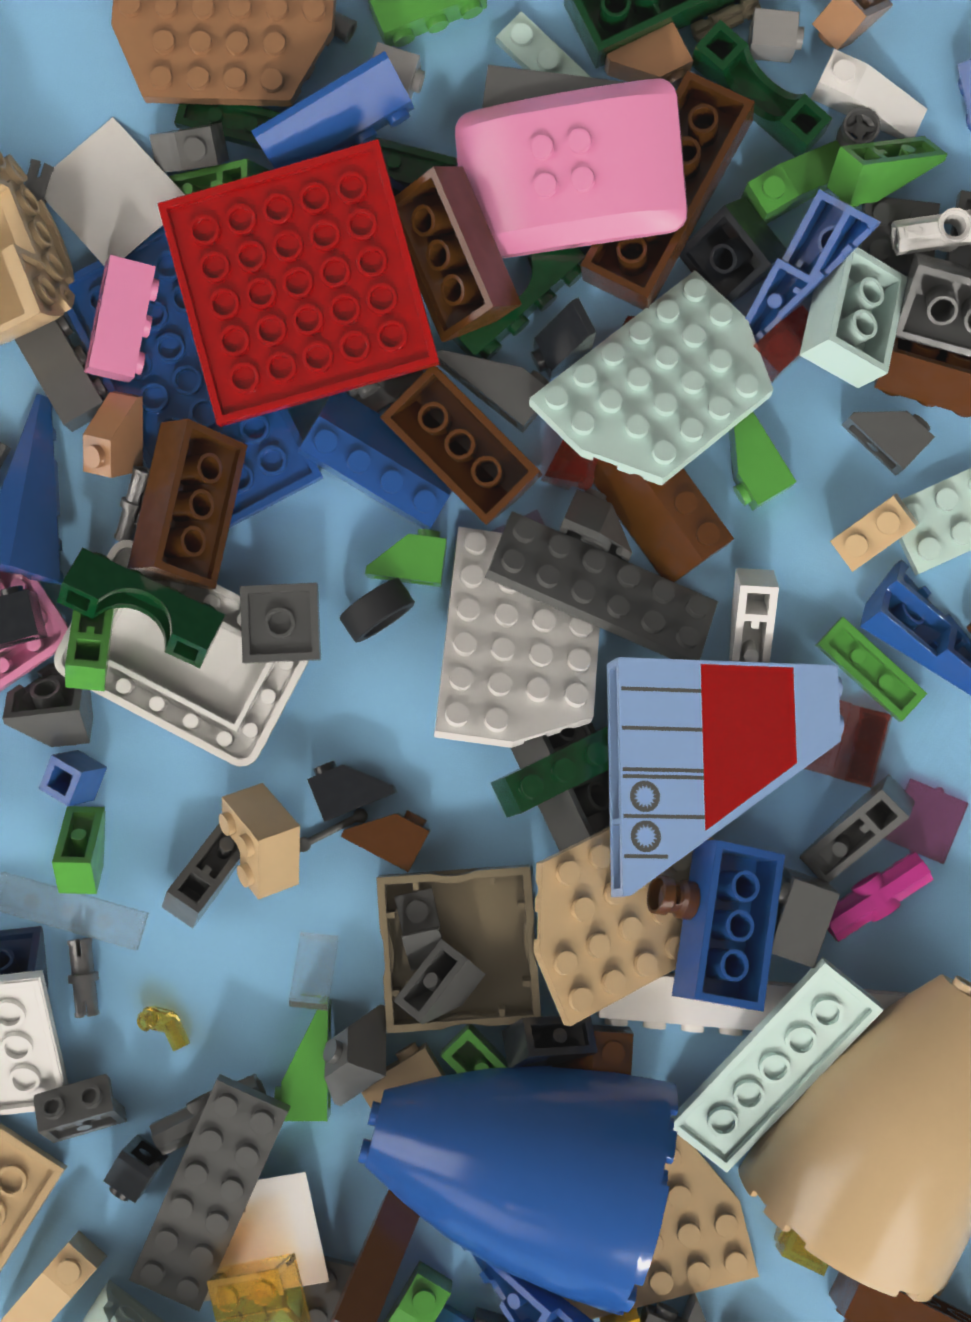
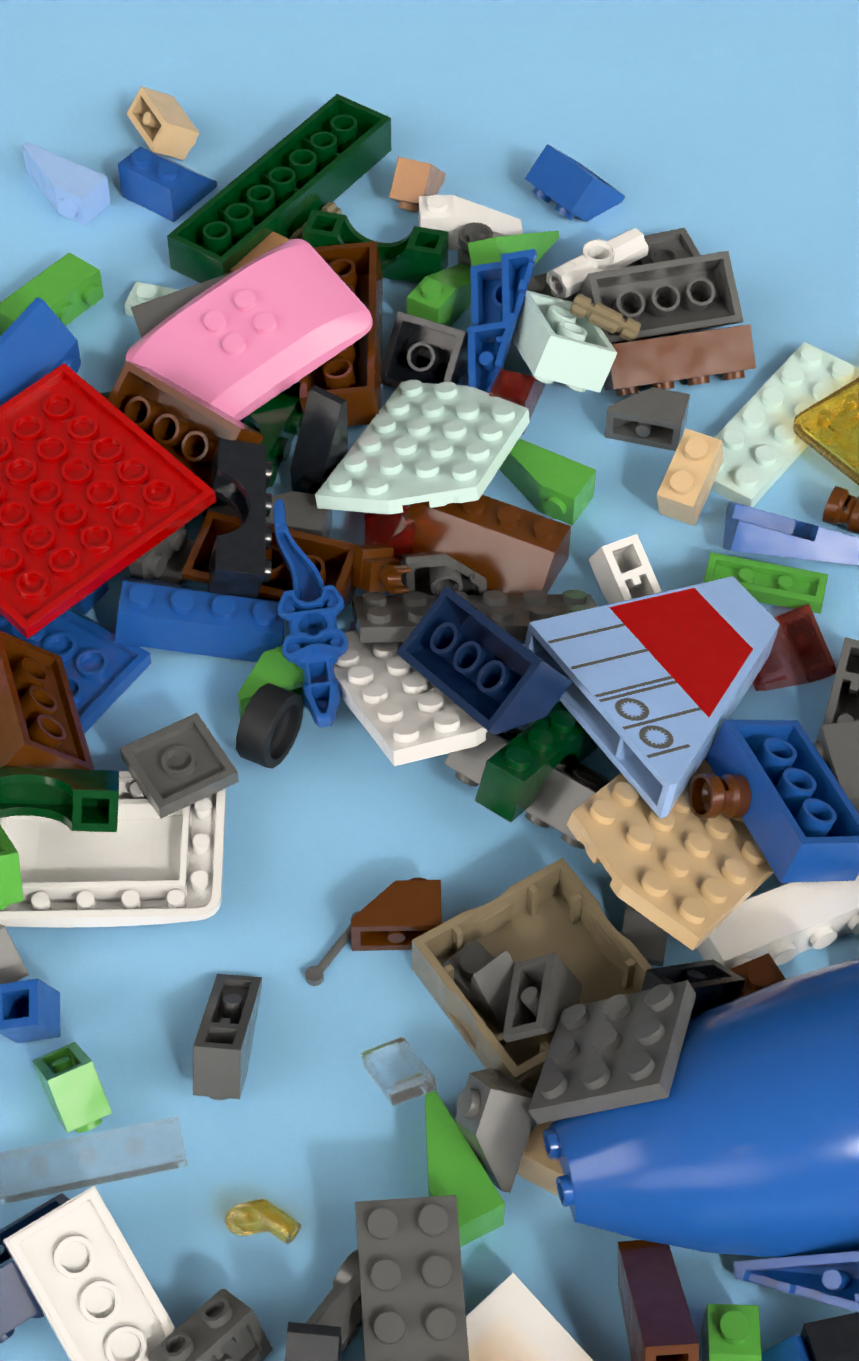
camera: 30 degrees left, 35 degrees down
(83, 977) = (139, 1217): flat silver pin -> none
(265, 838) = (277, 961): tan brick -> none
(345, 789) = (330, 894): black slope -> none
(451, 1083) = (613, 1053): none -> dark grey plate
(457, 531) = (314, 636): none -> blue animal
(469, 355) = (238, 557): none -> black arch
(542, 505) = (377, 569): none -> reddish brown piece
(556, 678) = (481, 665): none -> dark blue slope
(774, 35) = (366, 214): light grey brick -> none
(906, 318) = (605, 317): none -> dark tan axle

